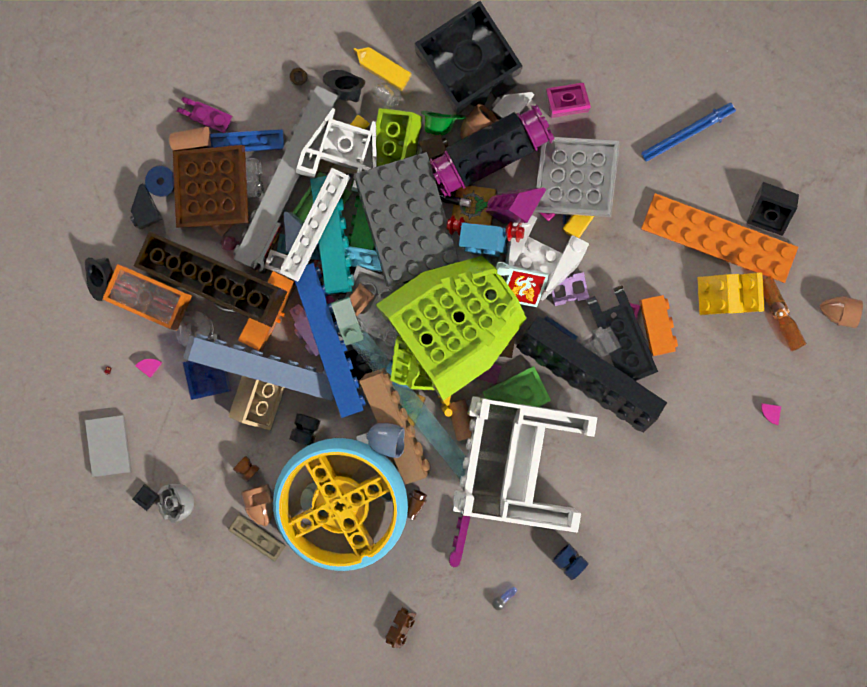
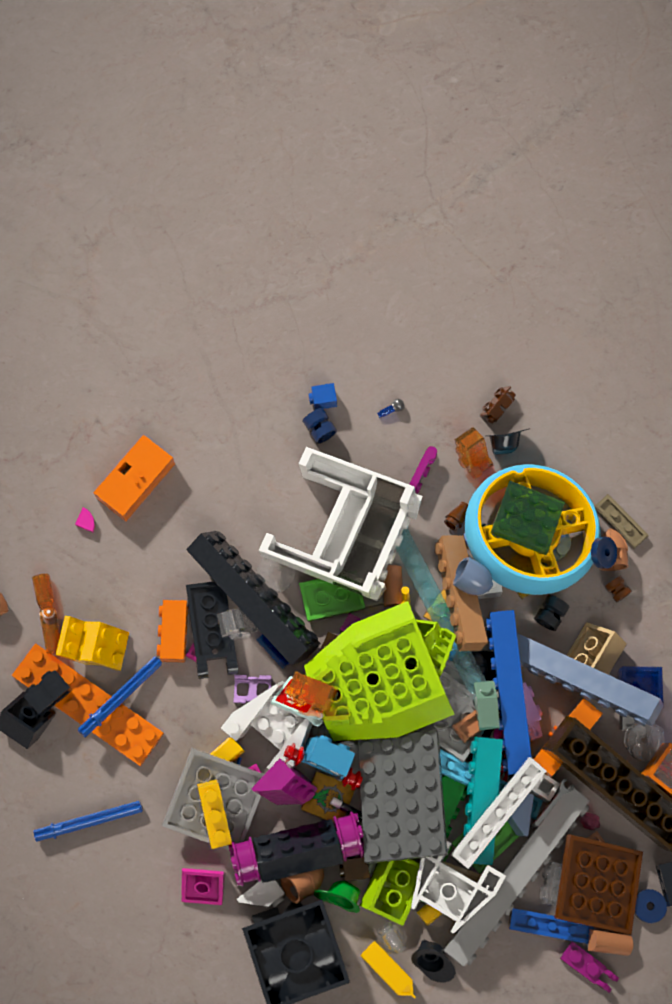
camera: 165 degrees left, 15 degrees down
(267, 495) = (604, 552): none -> dark blue piece
(304, 75) = (474, 983): dark brown bush -> none
(347, 510) = (527, 517): none -> clear green plate
(383, 590) = (505, 443): none -> black piece
(414, 569) = (473, 452): none -> clear orange hinge
(513, 290) = (311, 691): none -> clear orange hinge
(574, 162) = (214, 814): none -> yellow brick
(574, 593) = (323, 396): none -> blue brick
(691, 250) = (119, 697): none -> blue axle
(736, 465) = (134, 478): none -> orange brick
(759, 236) = (47, 692): none -> black brick

